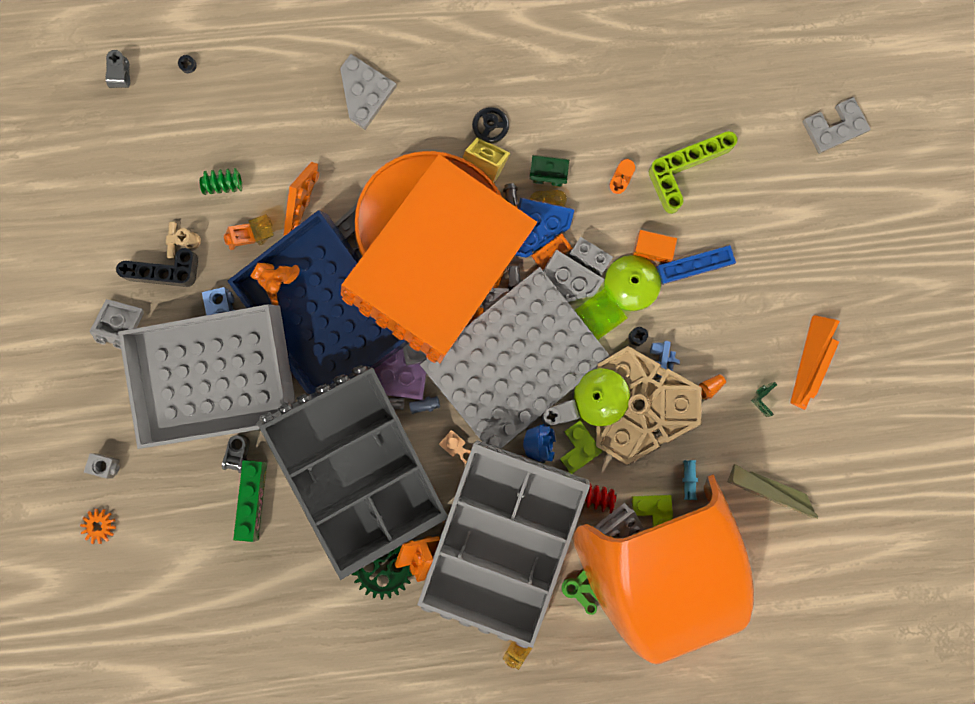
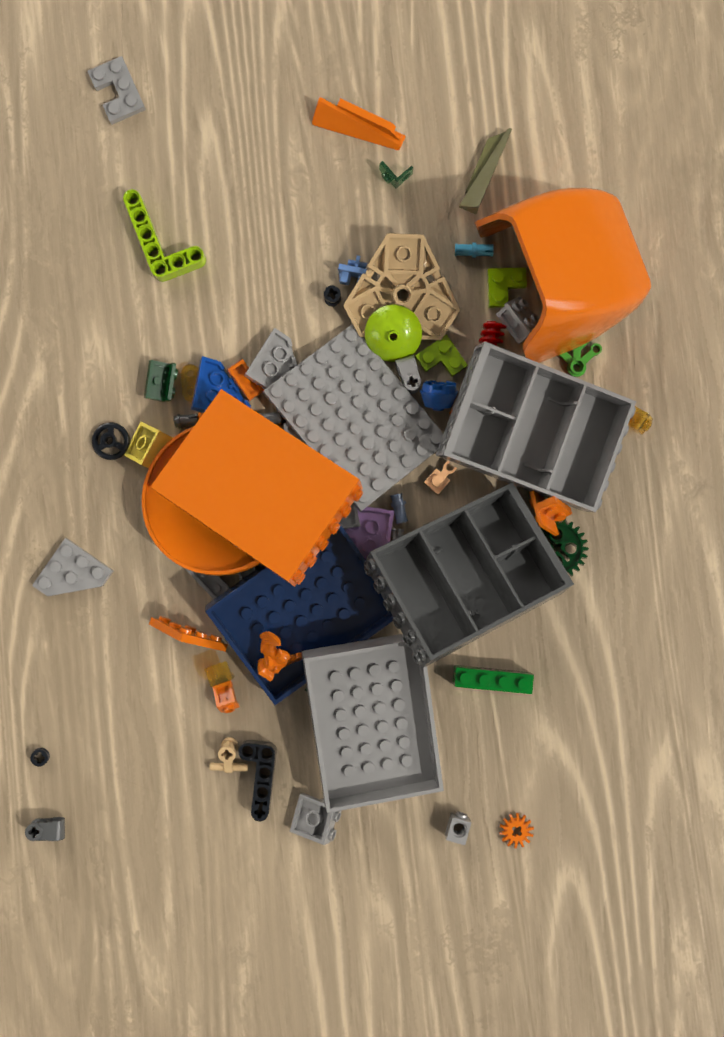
camera: 90 degrees left, 5 degrees up
(210, 297) = (302, 720): light blue brick -> none
(220, 182) = (168, 717): green piece -> none
(235, 455) = (450, 695): dark grey piece -> none
(590, 256) = (251, 341): light grey brick -> none
(601, 314) = (309, 332): clear neon green plate -> none
(617, 183) = (174, 311): orange piece -> none
(625, 292) = (278, 313): lime dish -> none
(654, 246) = (241, 277): orange panel -> none
(696, 264) = (260, 236): blue plate -> none
(712, 386) = (382, 224): orange cone -> none

